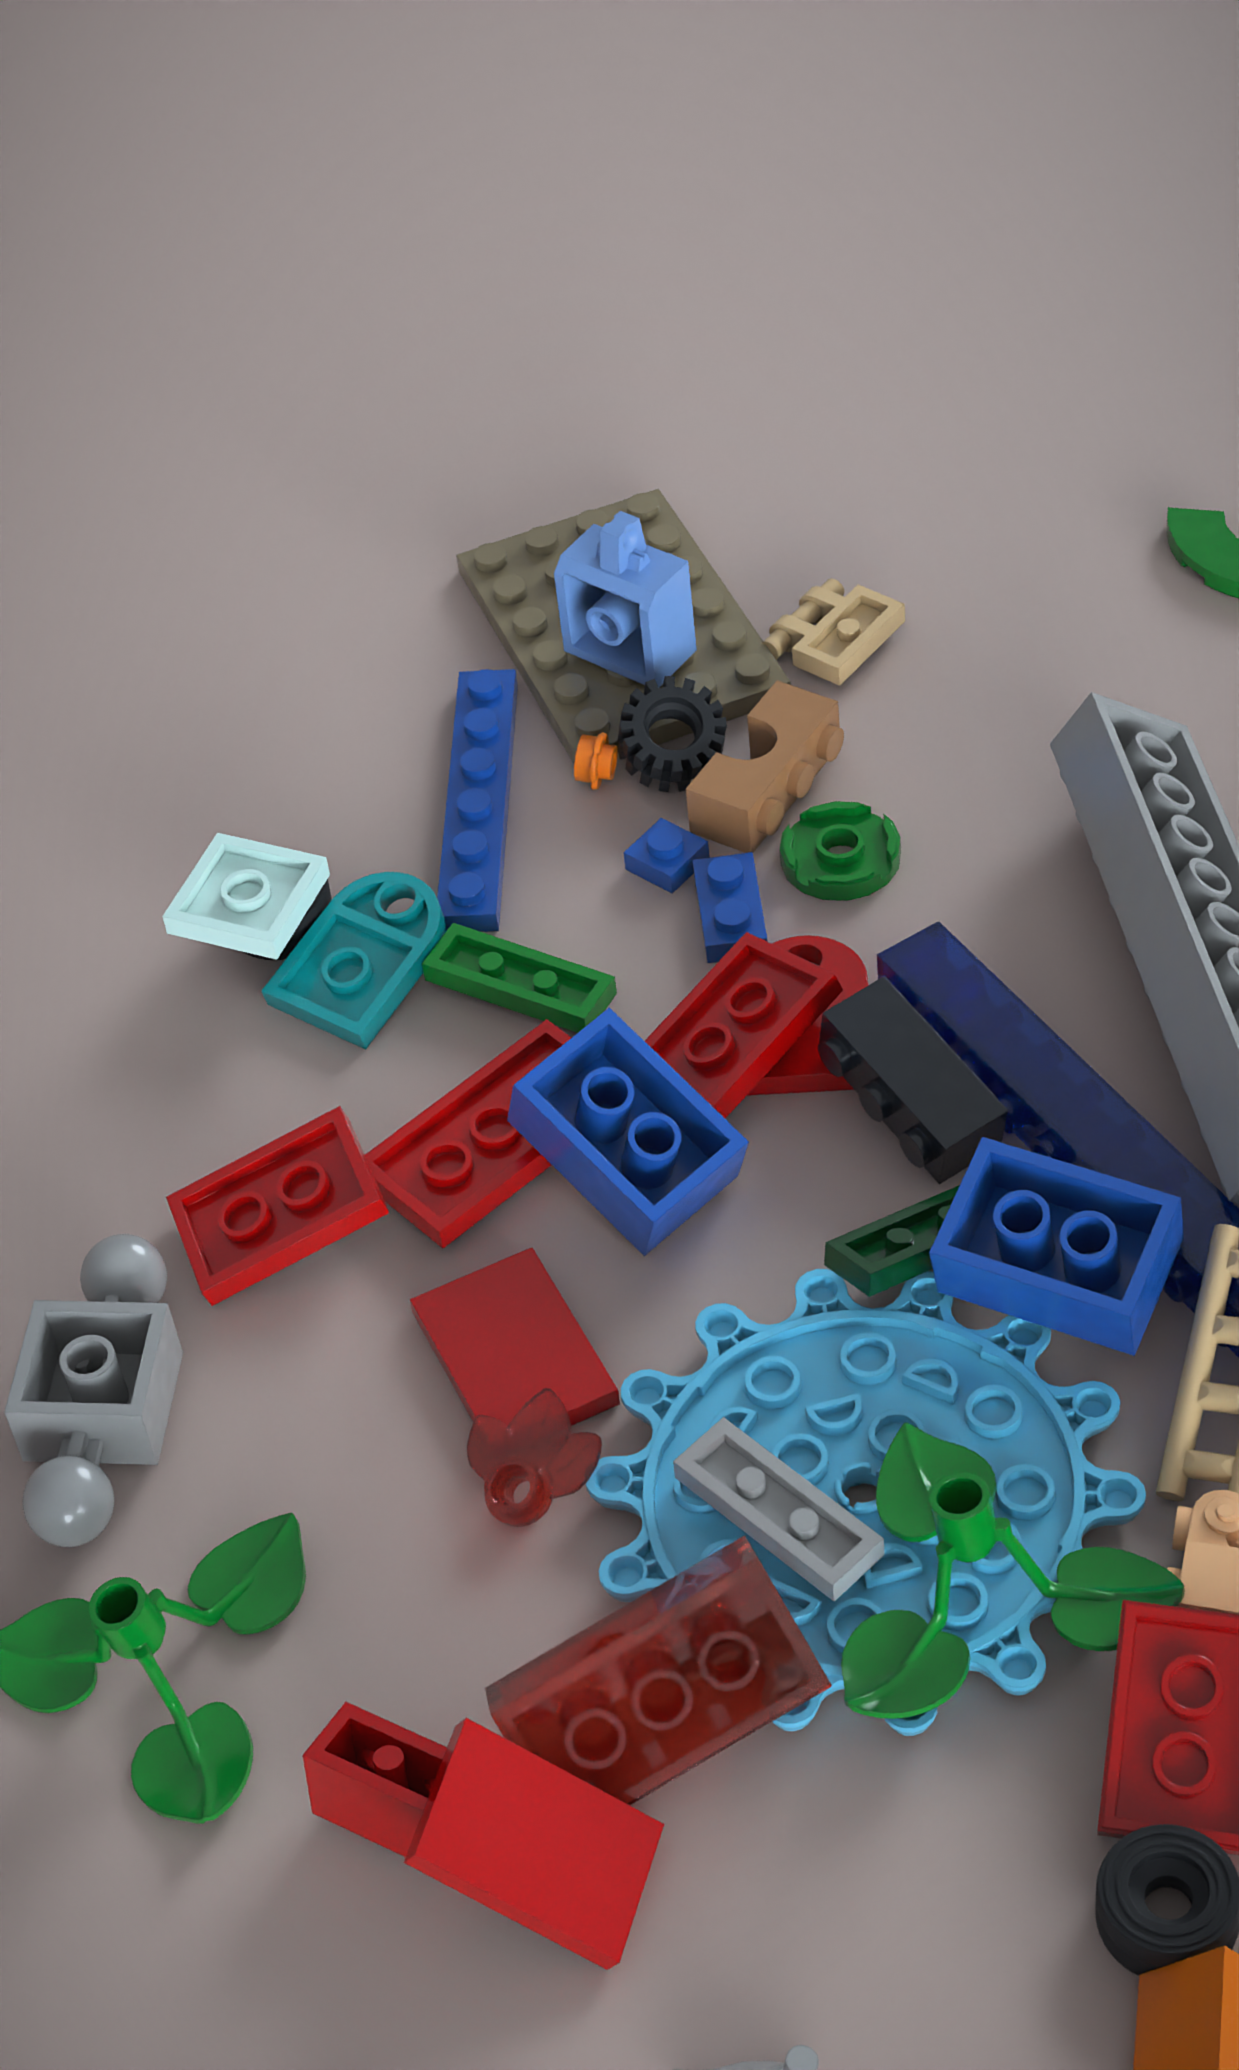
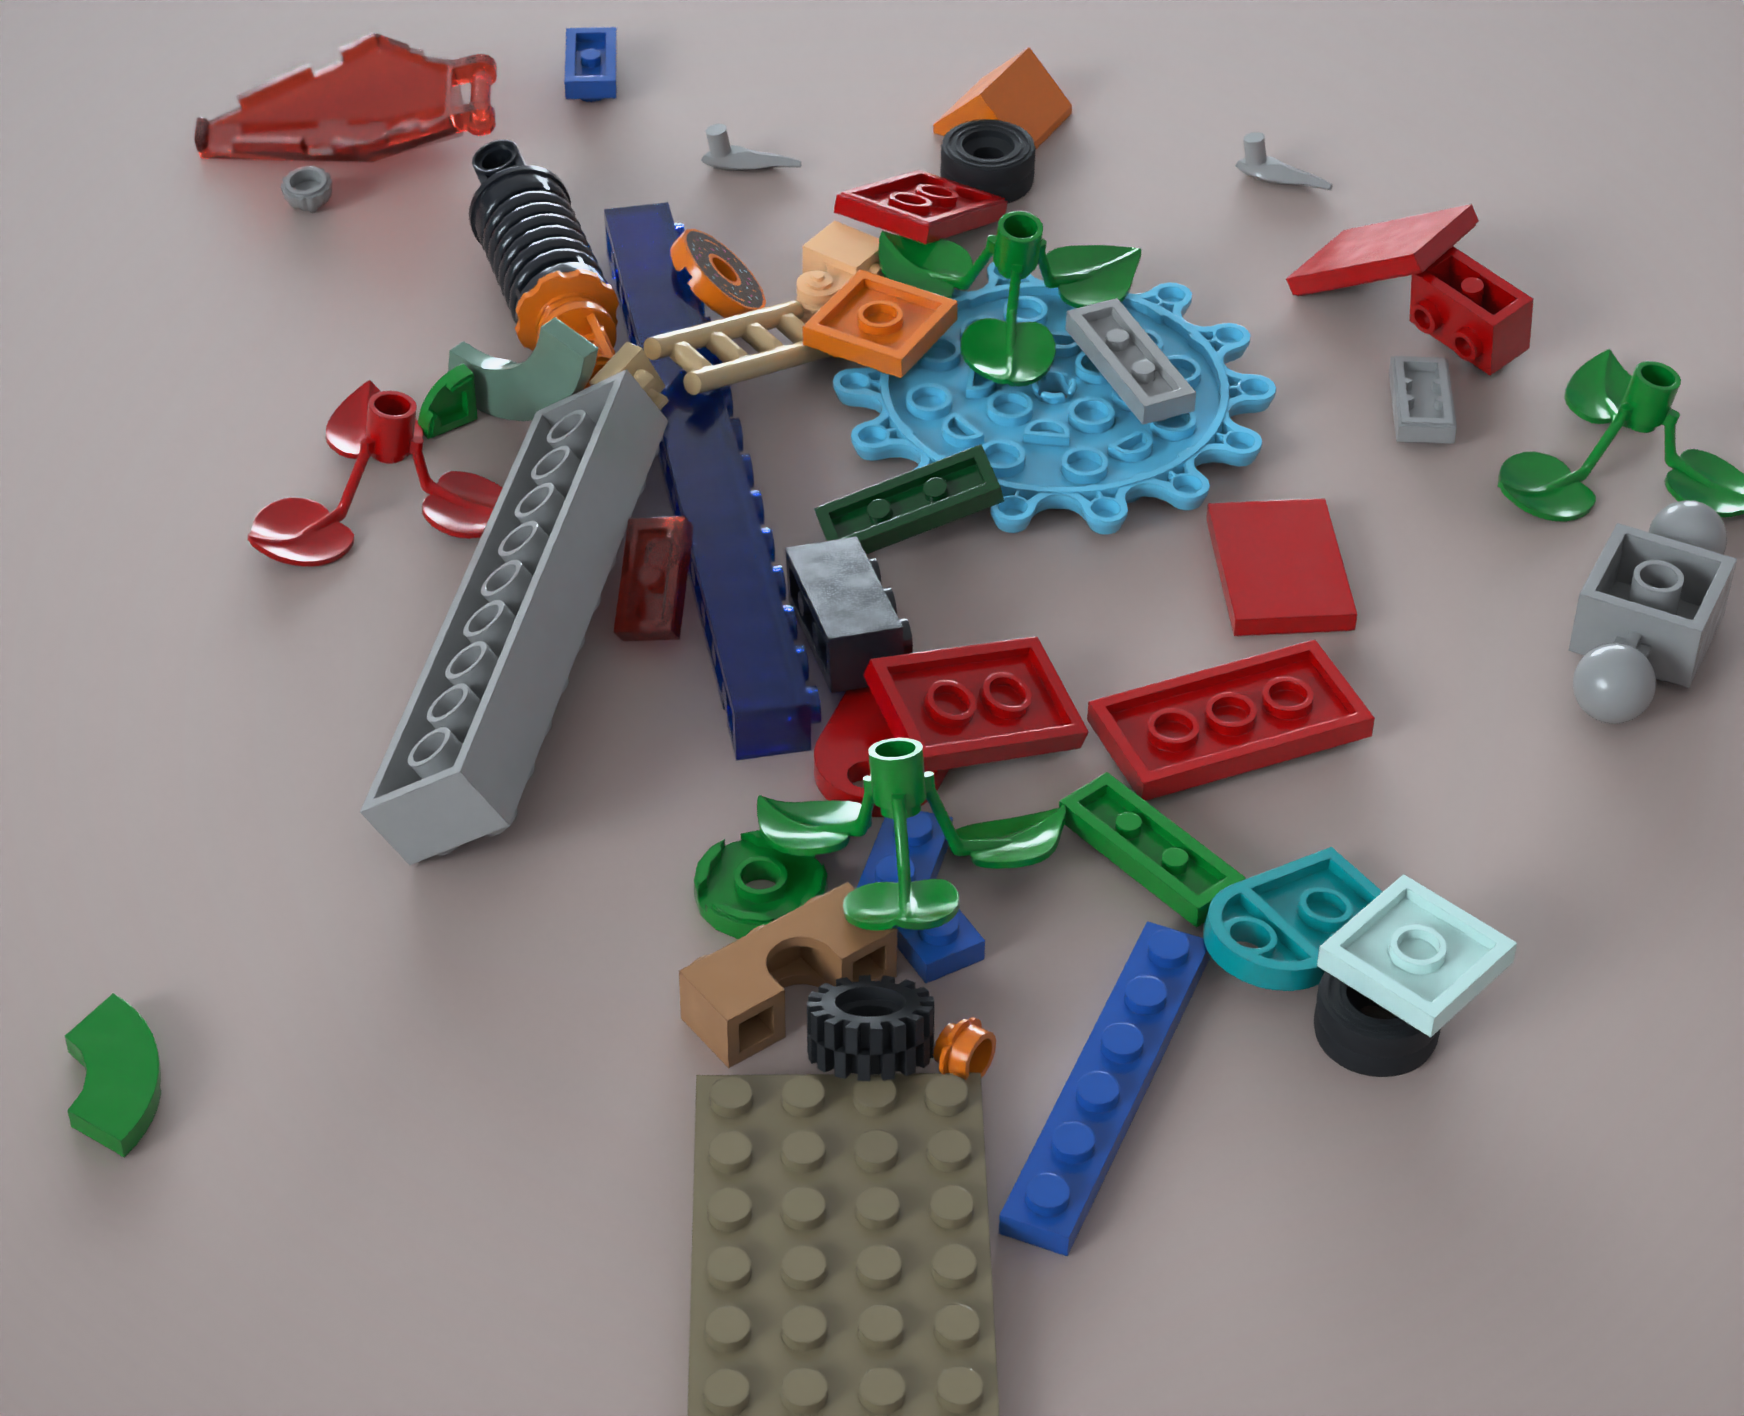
camera: 165 degrees left, 5 degrees down
(276, 1205) = (1458, 698): red plate -> none
(423, 1652) = (1422, 400): none -> light grey plate
(532, 1449) = (1299, 470): clear red plate -> none
(625, 602) = (855, 1119): medium blue hinge -> none
(626, 1131) = (1124, 622): blue brick -> none
(663, 1679) = (1270, 297): clear red slope -> none
(689, 782) = (899, 787): none -> green plant
(845, 630) = (596, 1112): tan plate -> none
(1058, 1245) = (827, 410): blue brick -> none
(1101, 1459) = (880, 323): none -> orange plate
(1121, 1053) = (653, 579): none -> clear red plate

